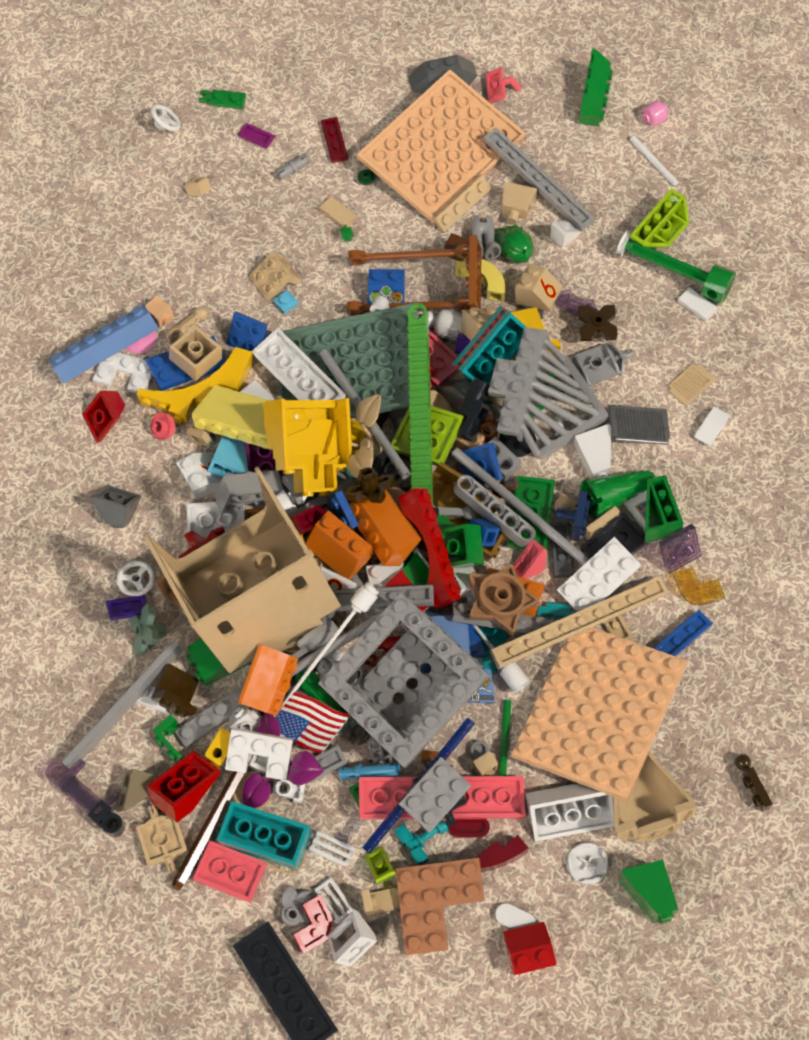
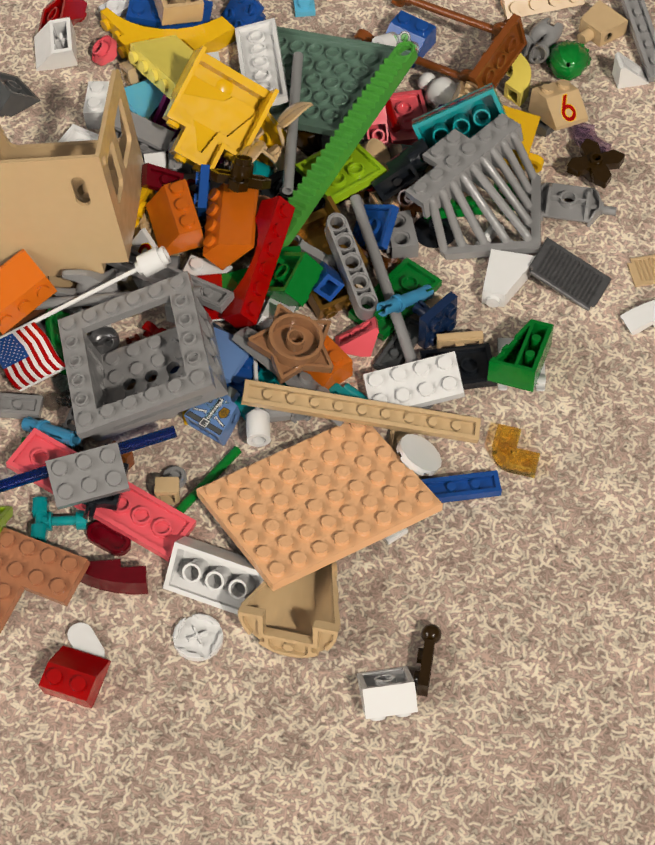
camera: 30 degrees right, 10 degrees down
(121, 443) = (56, 45): none -> white slope
(547, 519) = (398, 302): none -> dark azure pin
(614, 490) = (491, 315): green cone -> none
(639, 629) = (419, 454): none -> white tile
(651, 890) = (239, 690): green slope -> none
(680, 548) = (519, 402): plate -> none
(745, 823) = (387, 693): none -> white slope

